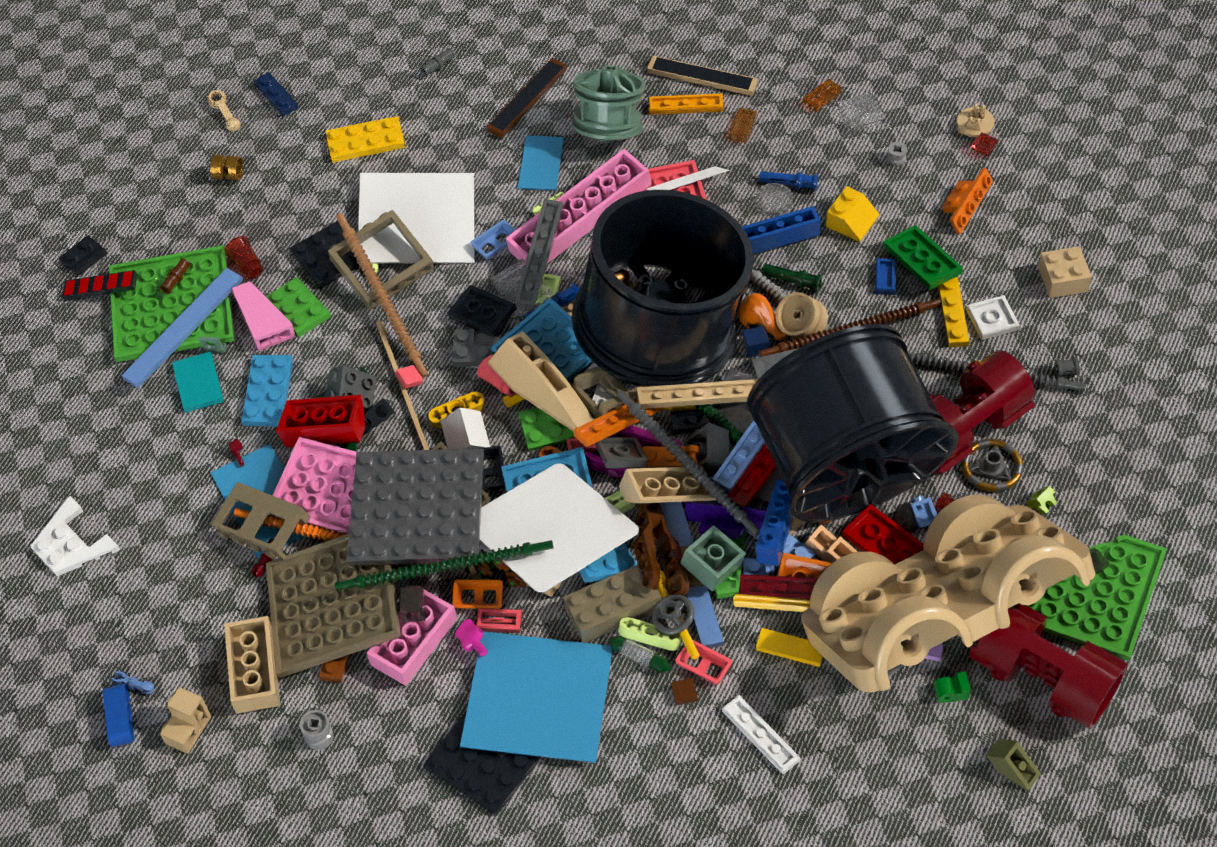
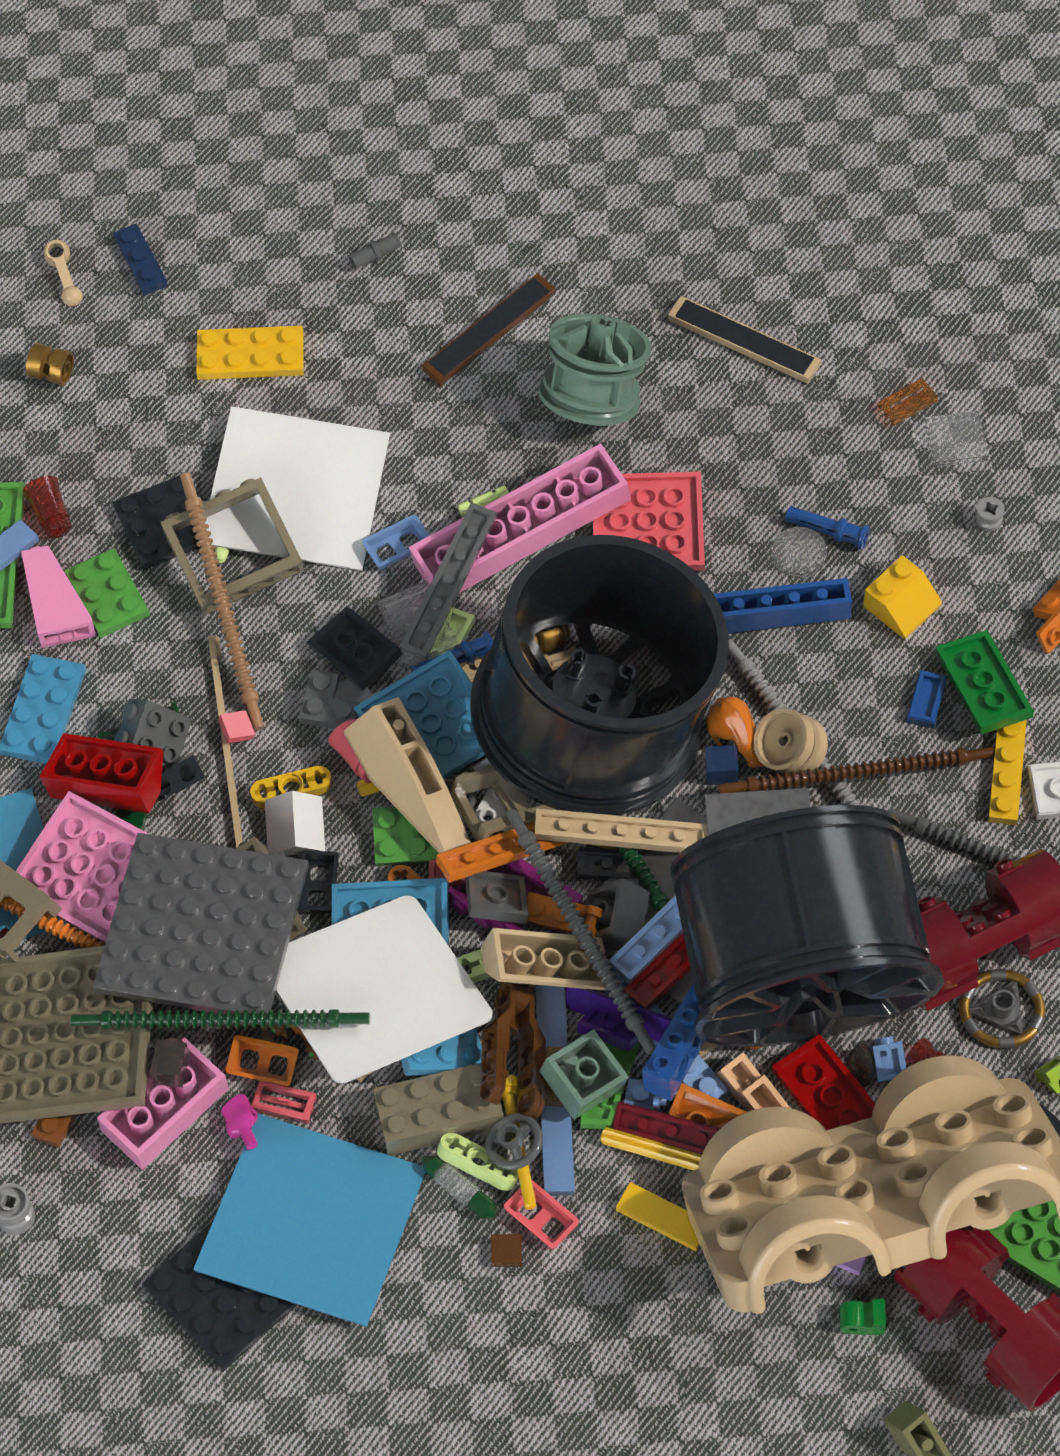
camera: 10 degrees right, 5 degrees up
(541, 163) = (487, 434): dark azure piece -> none
(685, 104) = (710, 380): light orange tile -> none
(689, 179) = (681, 501): white sticker -> none
(743, 125) = (783, 428): clear orange tile -> none
(761, 734) = (594, 1330): white tile -> none
(800, 278) = (806, 680): dark green pin -> none

